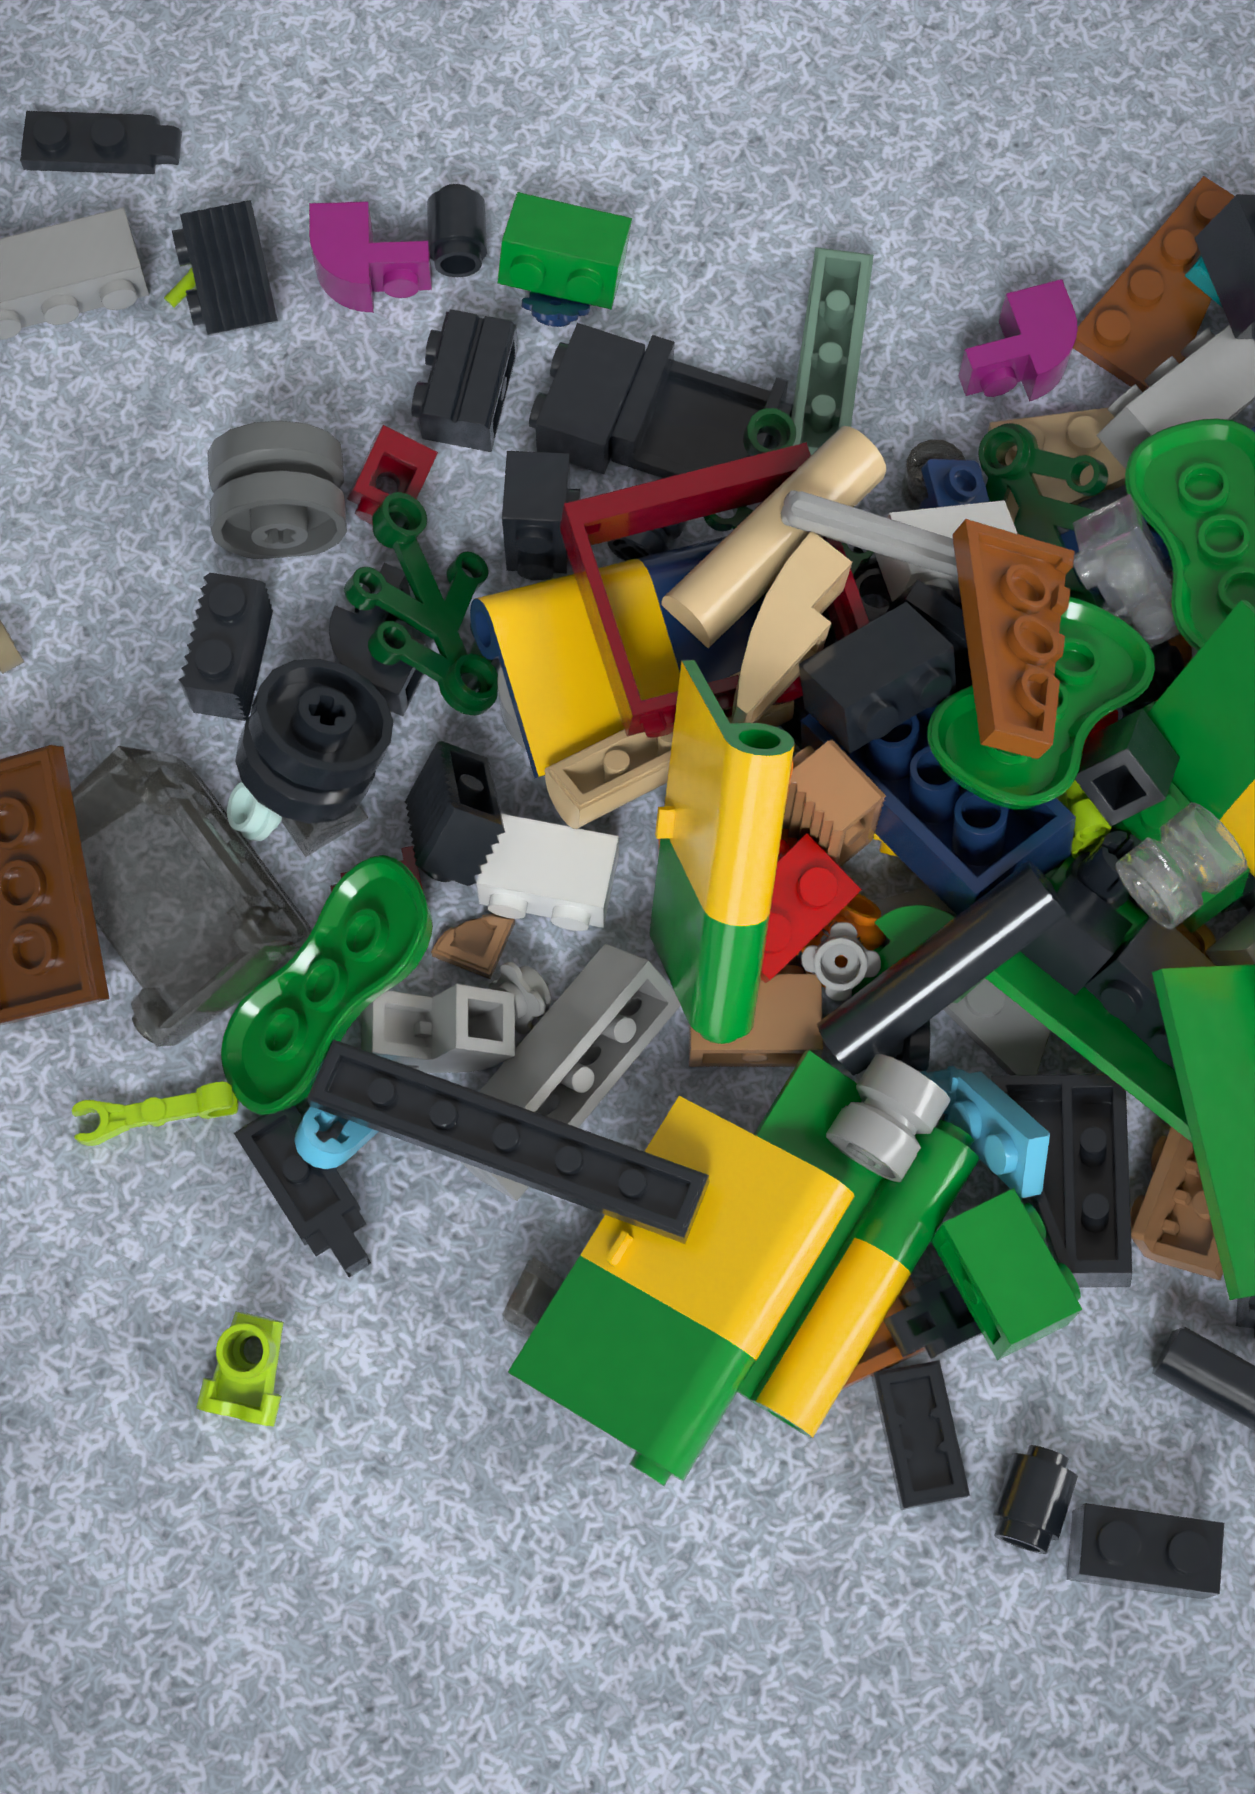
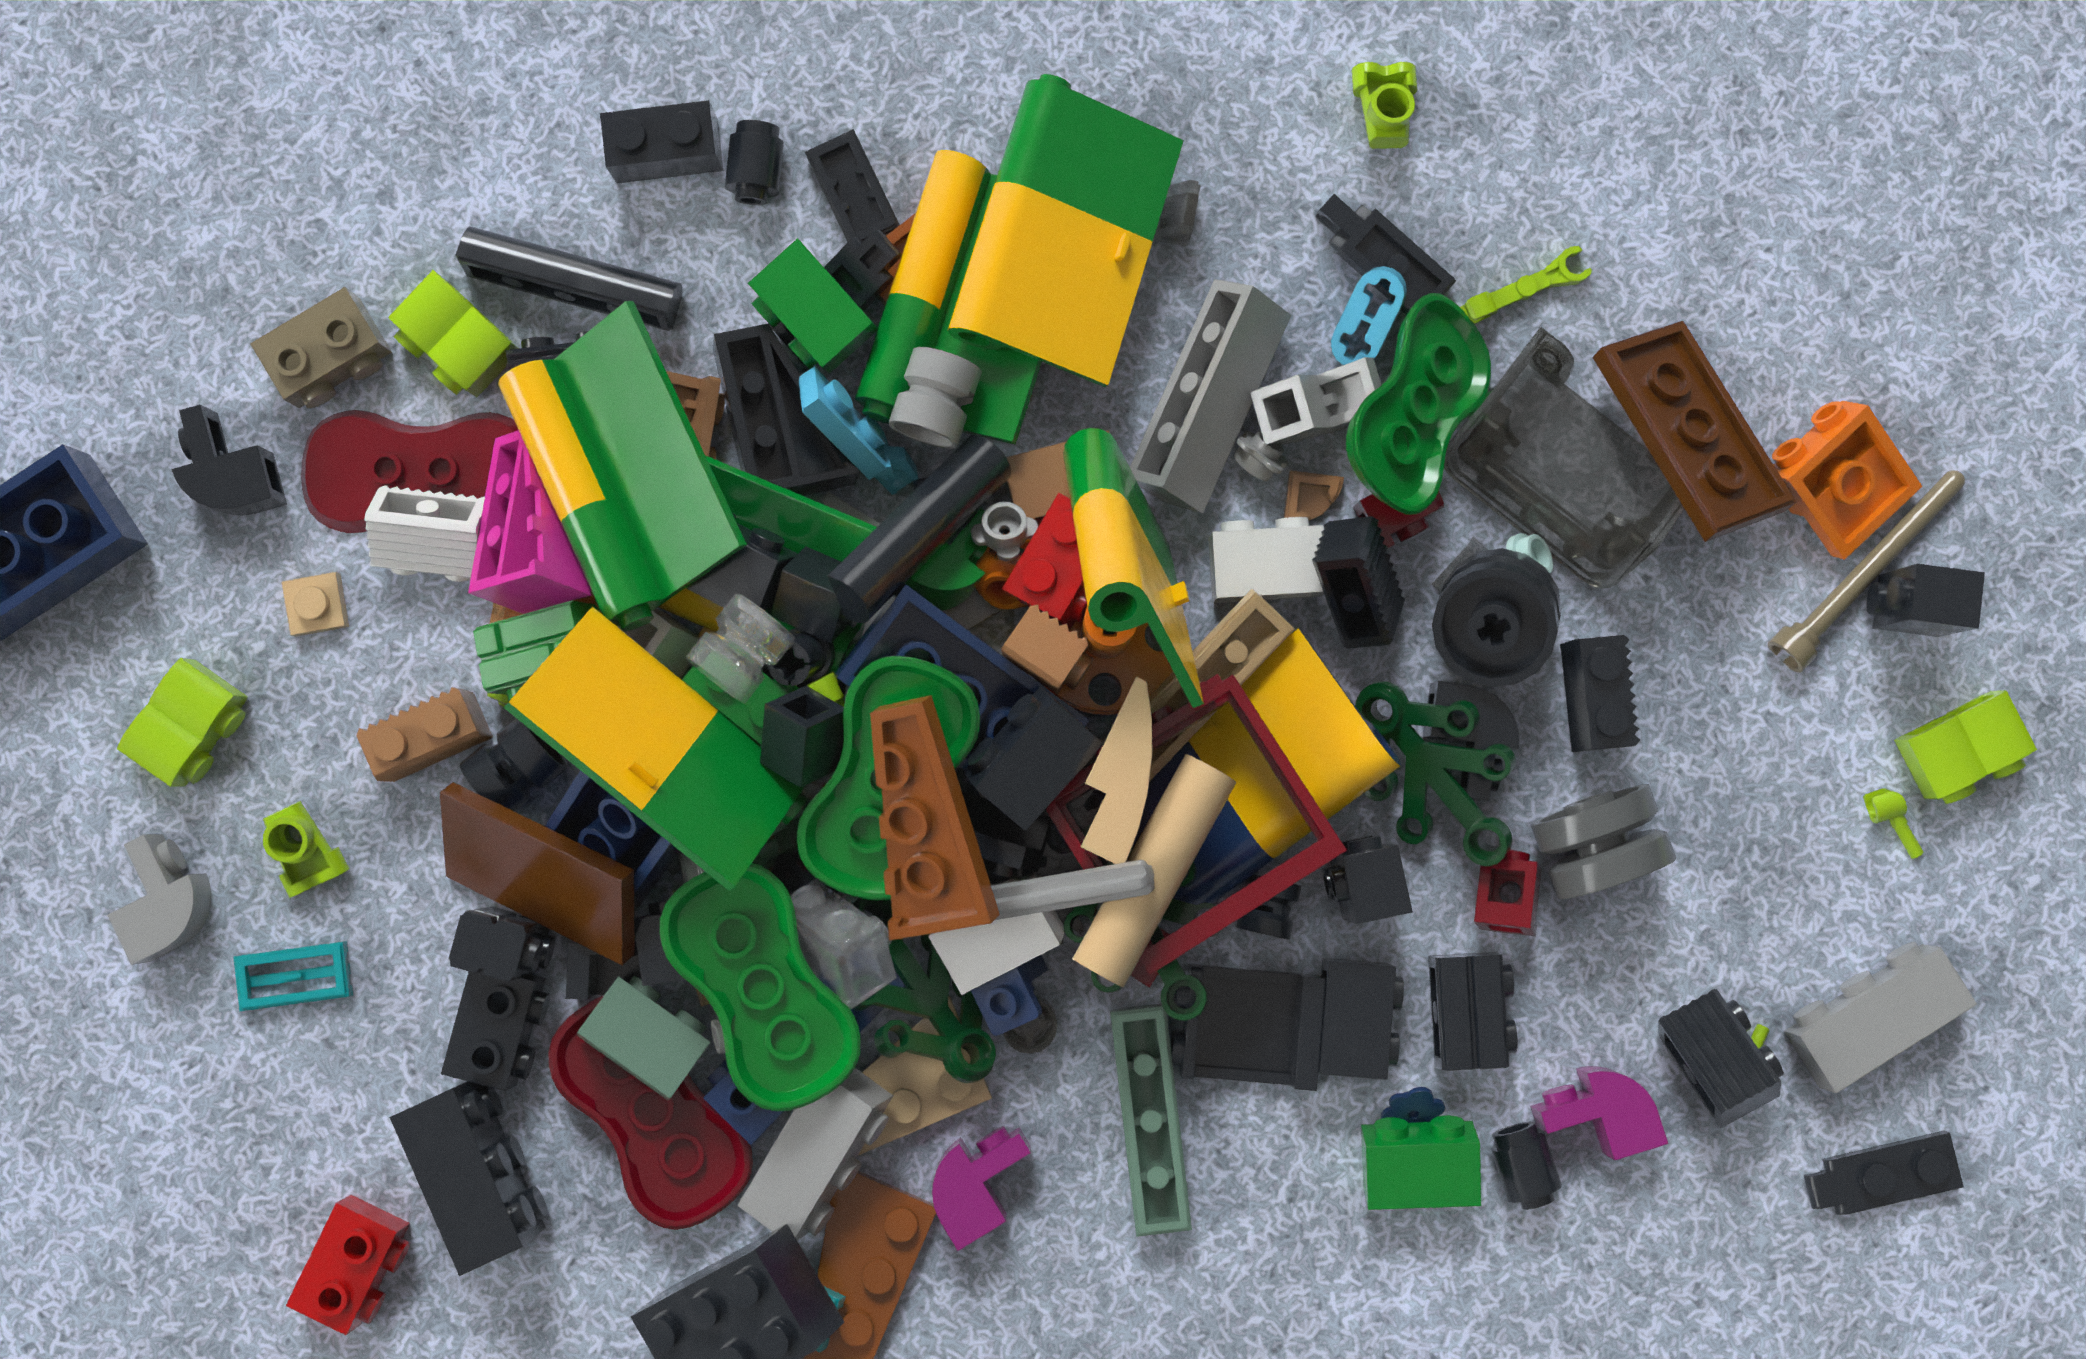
camera: 165 degrees right, 15 degrees up
(509, 1141) = (1235, 303): black tile -> none

